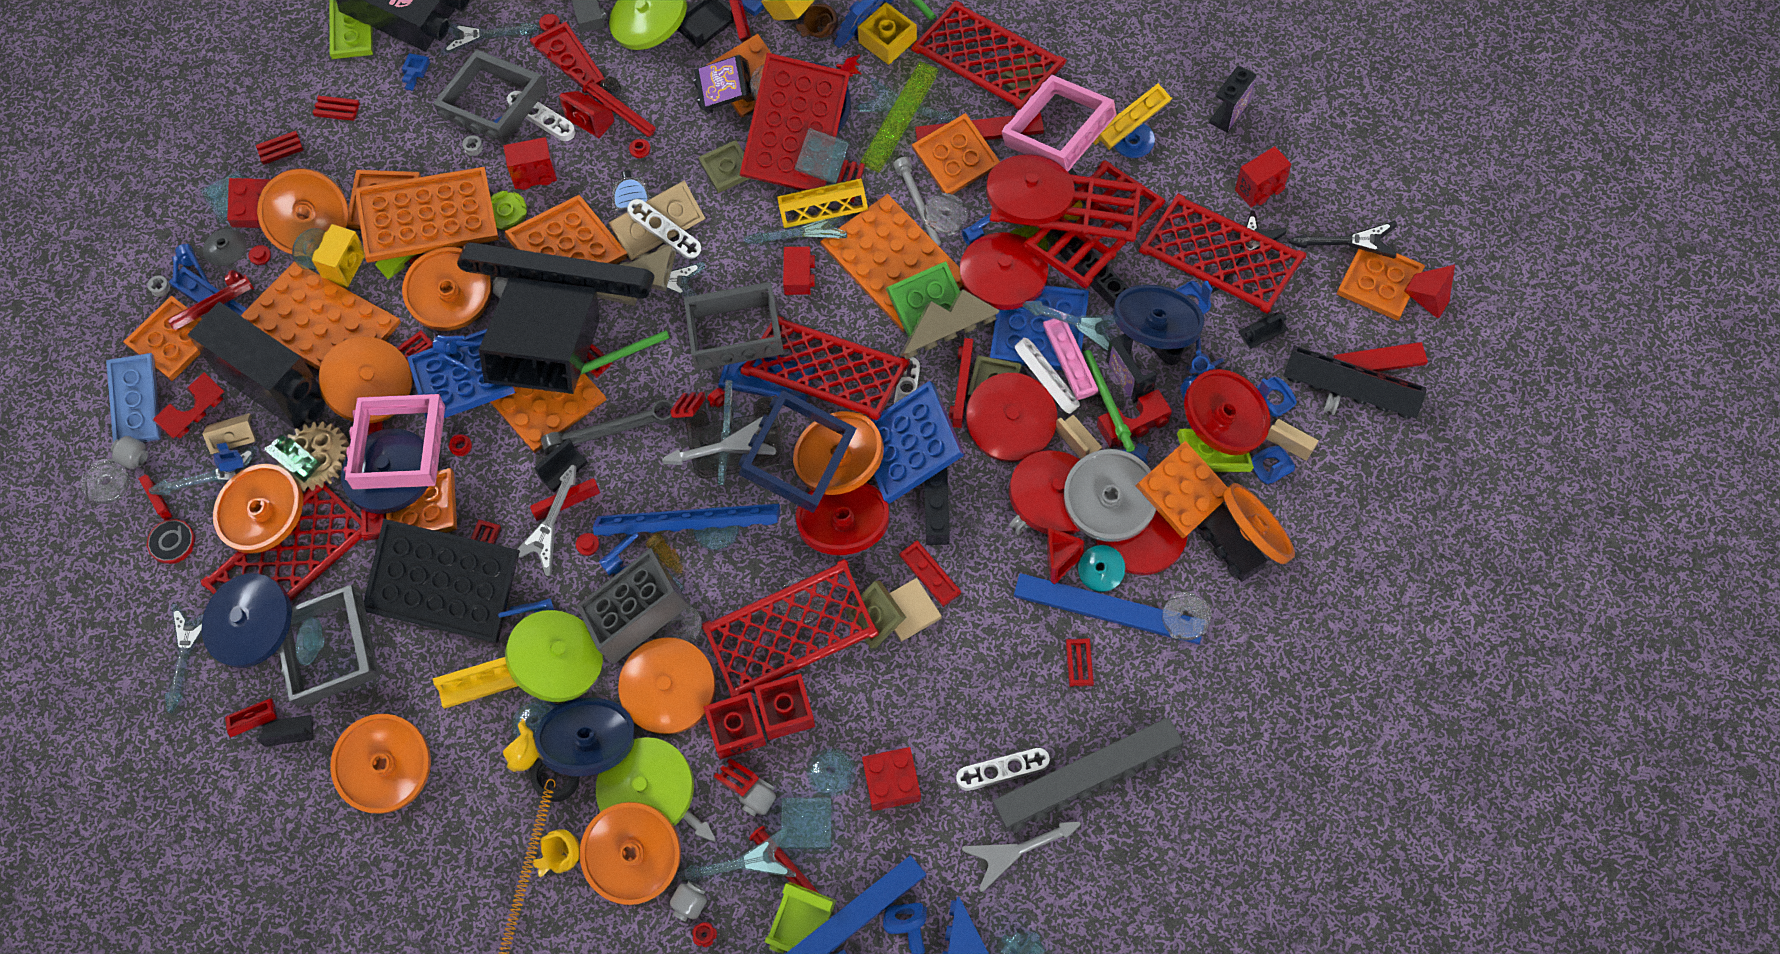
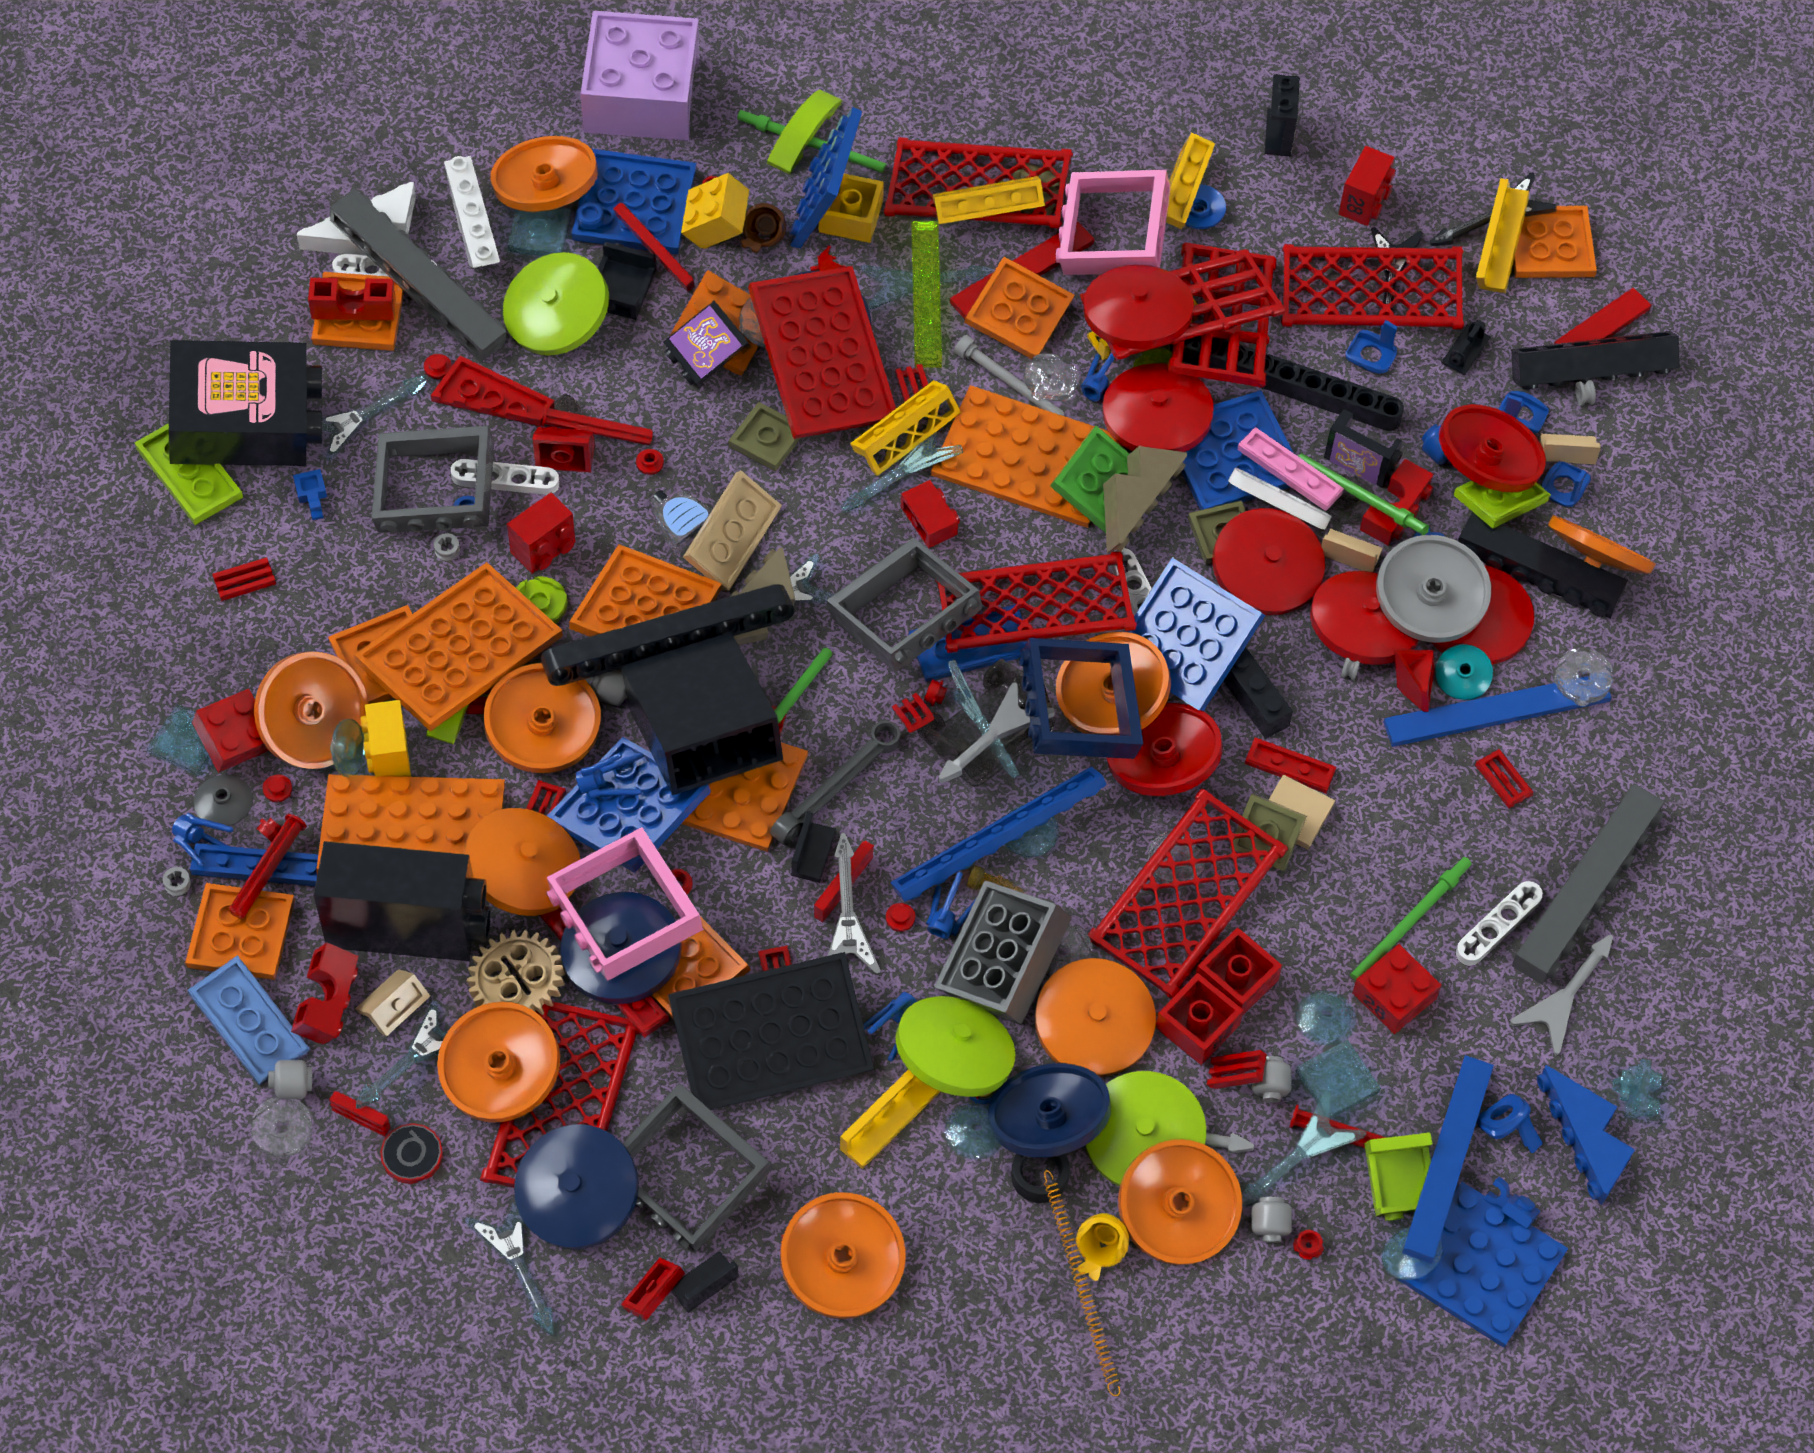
camera: 35 degrees left, 5 degrees down
(226, 459) = (423, 1027): blue plate -> none
(278, 144) = (223, 638): red tile -> none
(293, 457) = (505, 985): clear green hinge -> none
(309, 641) = (669, 1168): clear light blue dish -> none
(522, 751) = (988, 1159): yellow hat -> none
(661, 232) = (751, 532): white beam -> none
(822, 156) = (877, 374): clear light blue plate -> none
(965, 355) = (1176, 519): red plate -> none
(982, 68) = (988, 199): none -> yellow fence
(986, 717) = (1446, 881): none -> bright green bar
(1091, 326) = (1288, 425): clear light blue piece -> none
(1158, 316) = (1362, 380): dark blue dish -> none
(1183, 489) = (1504, 546): orange plate -> none
(1201, 362) = (1432, 409): blue plant -> none
(1340, 259) = (1502, 237): none -> yellow fence
(1432, 289) = (1610, 227): red slope -> none

